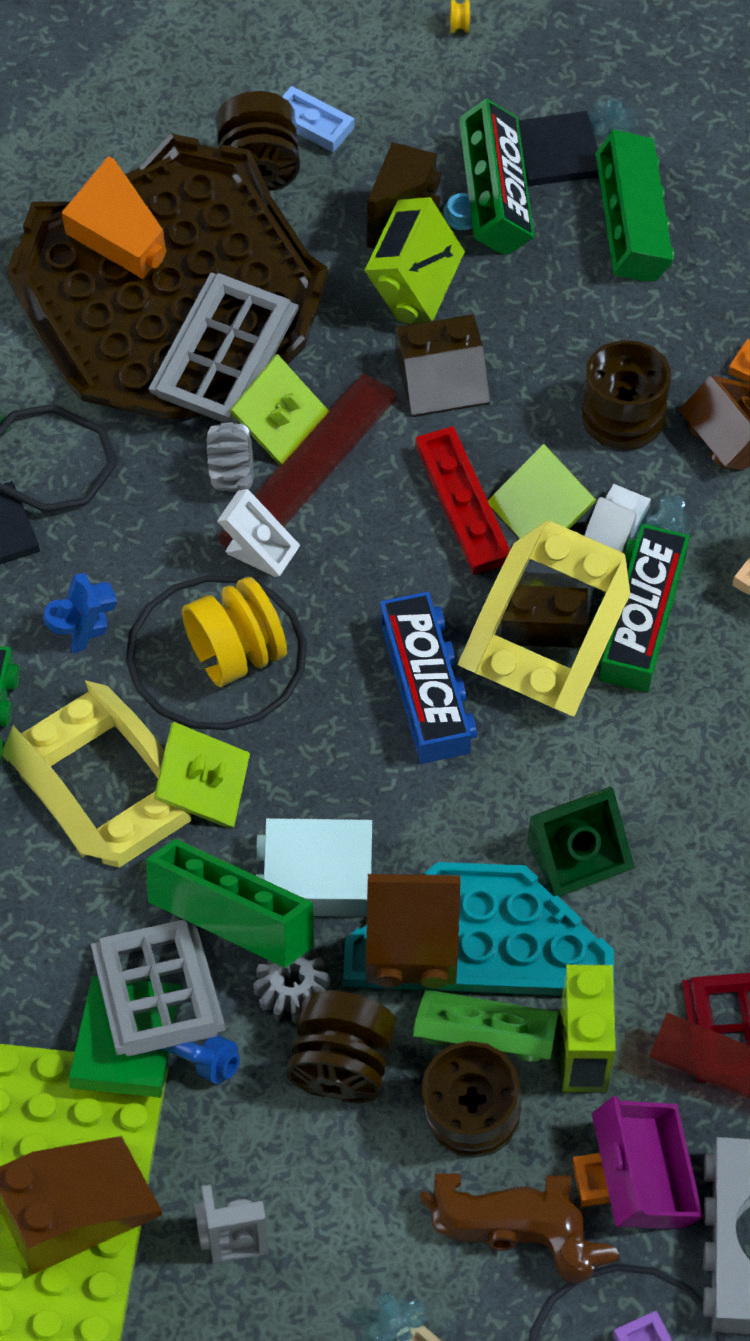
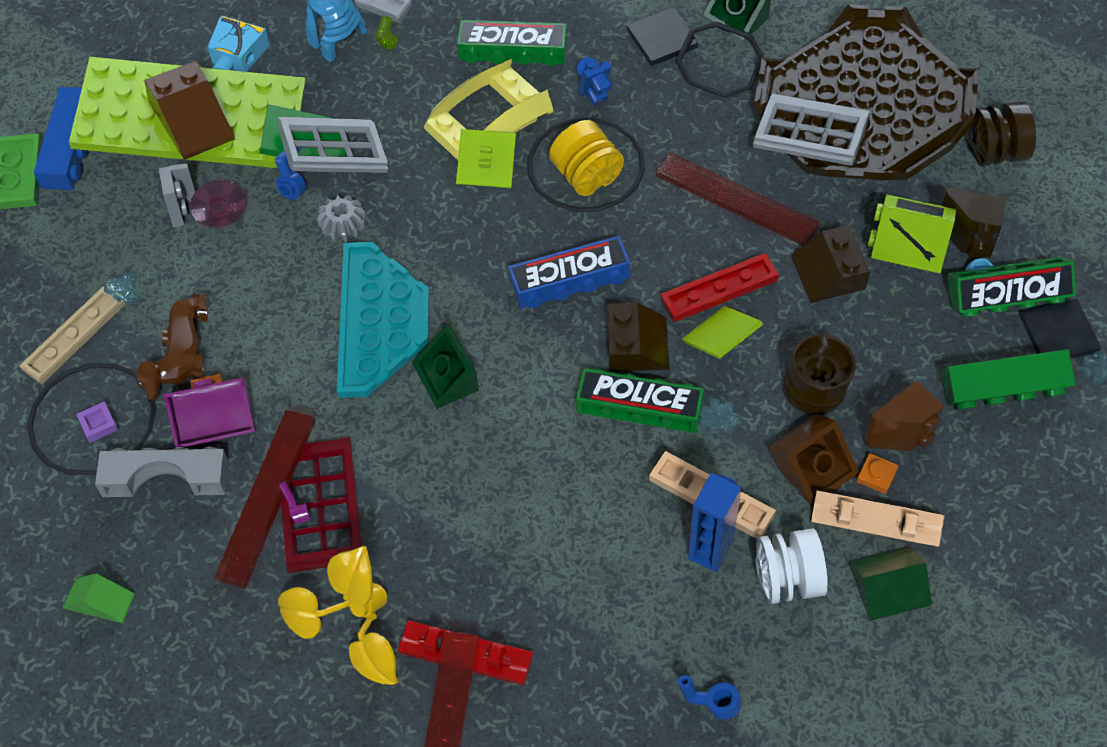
camera: 90 degrees right, 0 degrees up
(115, 221) = (899, 50): orange slope -> none
(230, 457) = (727, 146): light grey gear -> none
(230, 902) = (383, 170): green brick -> none
(249, 1151) = (215, 195): none -> clear pink dish
(257, 535) = (663, 163): white slope -> none
(279, 410) = (773, 170): lime piece -> none
(319, 120) = (1043, 173): light blue plate -> none
(319, 862) = (422, 224): light aqua brick -> none
(341, 1046) = (288, 238): dark brown wheel -> none
(412, 929) = (355, 260): reddish brown slope -> none
(469, 1073) = (253, 310): dark brown wheel -> none
(505, 1026) = (307, 317): bright green plate -> none
(528, 671) = (576, 317): light yellow wedge -> none
(587, 1028) = (296, 366): lime brick -> none
(617, 517) = (715, 382): white slope -> none
(695, 309) = (905, 420): none -> reddish brown slope

